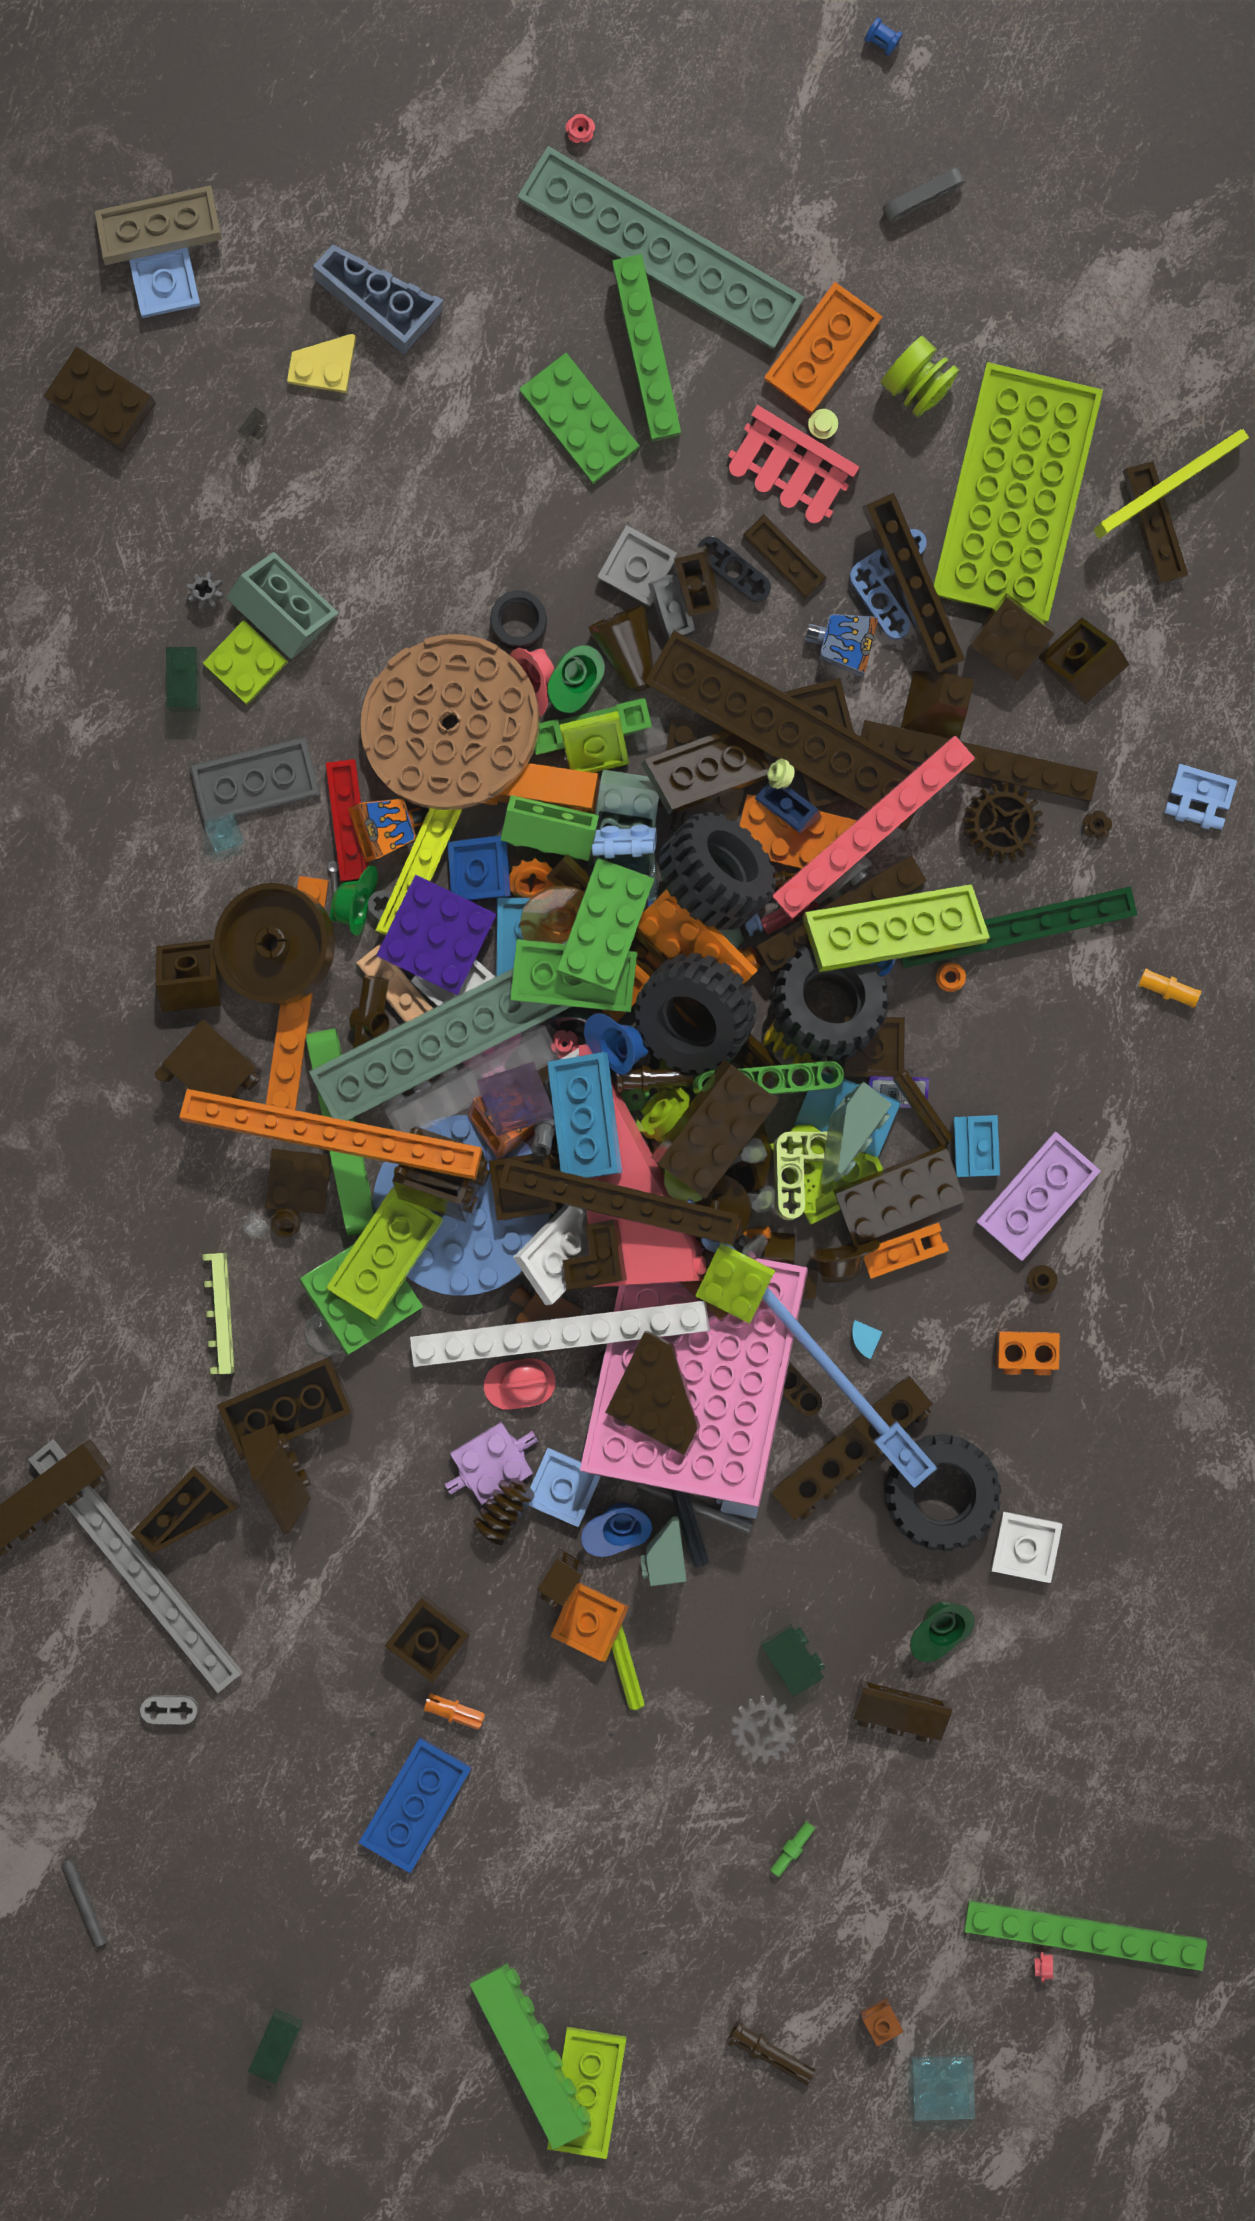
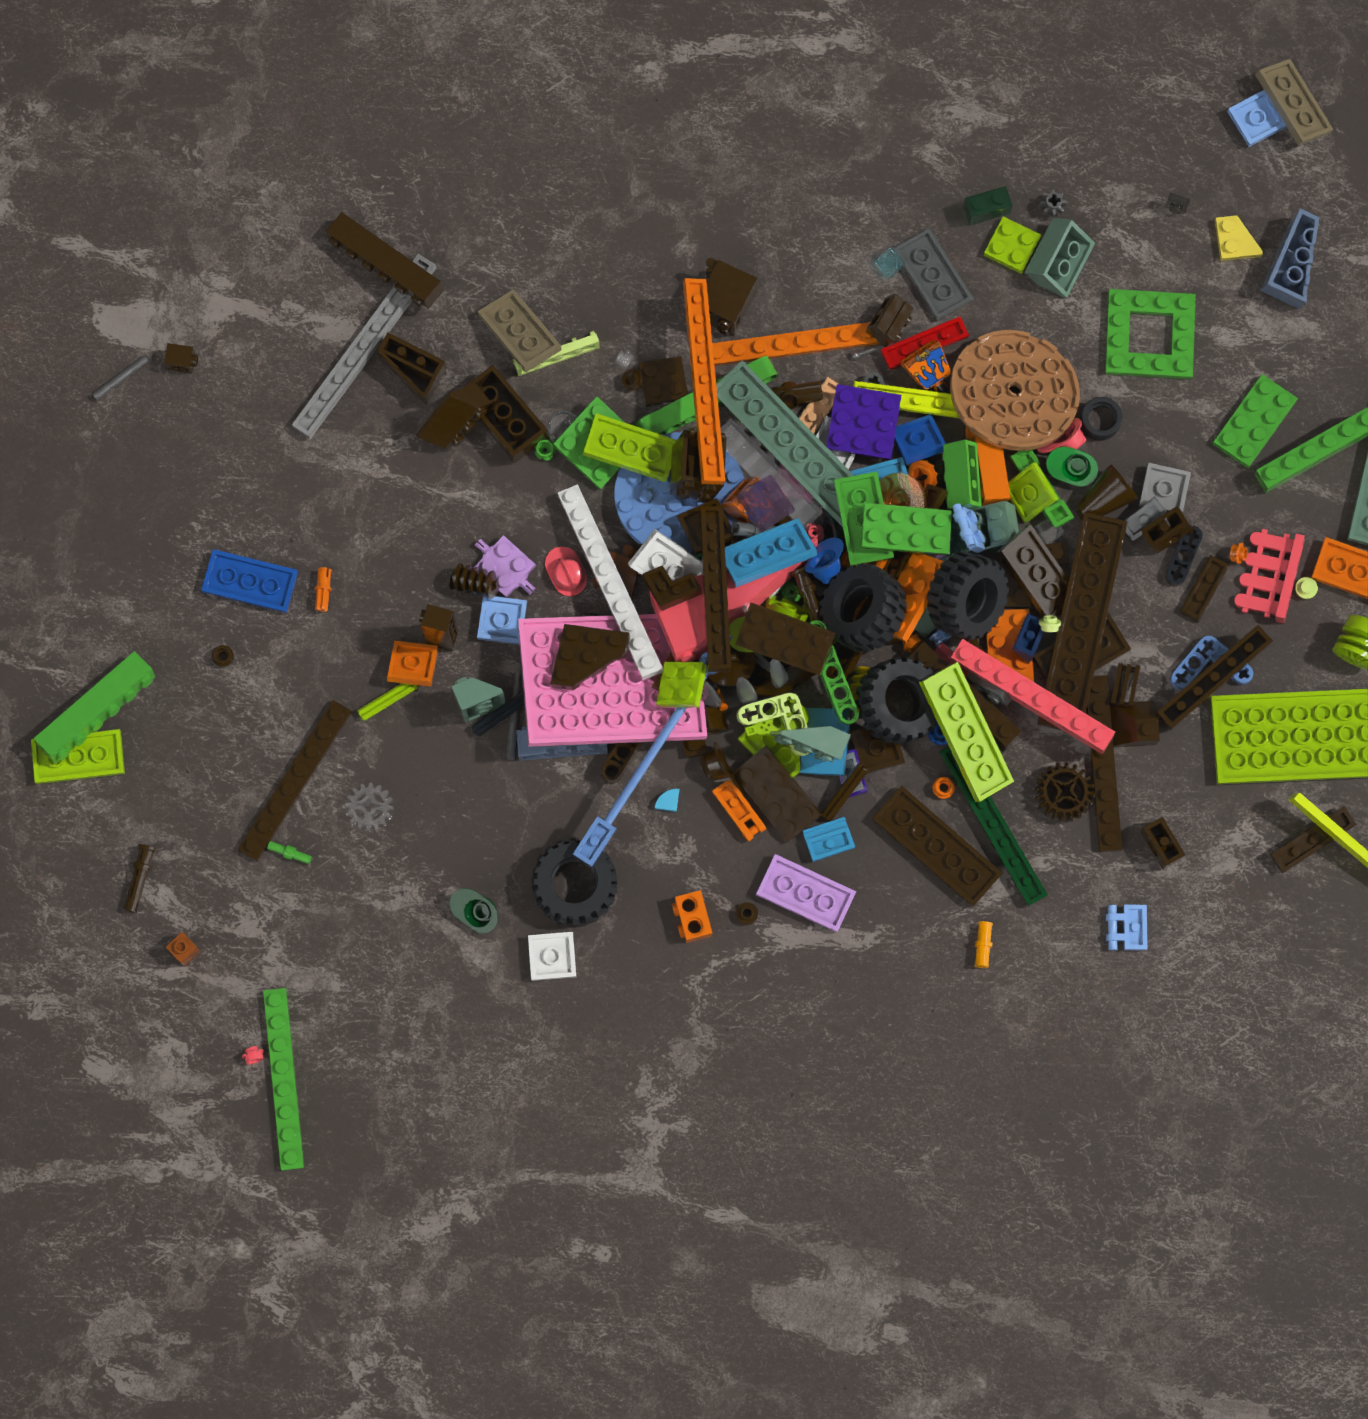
camera: 70 degrees right, 10 degrees down
(82, 1816) = (180, 358): none -> dark brown brick
(99, 399) = (1162, 97): dark brown brick -> none
(169, 1702) = (265, 398): light grey beam -> none
(177, 1354) = (519, 330): none -> dark tan plate
(187, 976) = (783, 266): dark brown slope -> none
(275, 2046) = (55, 532): clear green brick -> none
(297, 961) = (820, 334): dark brown piece -> none
(305, 857) = (890, 319): none -> dark brown brick
(348, 1373) = (545, 455): none -> bright green plate
(351, 901) = (869, 360): green piece -> none
(402, 465) = (1122, 362): none -> bright green plate
(427, 1638) = (369, 555): dark brown brick -> none
(503, 1876) = (218, 651): none -> dark brown plate
(616, 1530) = (481, 661): blue piece -> none
(699, 1816) = (295, 780): none -> dark brown plate
(752, 497) = (1238, 553): none -> orange plate
(793, 1659) = (425, 813): clear green brick -> none
(845, 641) = (1158, 646): torso -> none
(857, 1431) = (543, 776): dark brown brick -> none
(863, 688) = (1129, 668): none -> dark brown tile
(901, 1712) = (408, 898): dark brown slope -> none
(943, 2087) = (147, 1007): clear light blue plate -> none
(1012, 637) = (1198, 758): dark brown brick -> none
(1025, 1008) = (937, 846): none -> dark brown plate
(1084, 660) = (1198, 817): dark brown slope -> none
(1089, 825) = (1085, 866): dark brown plate -> none
(1107, 718) = (1162, 843): none -> dark brown brick

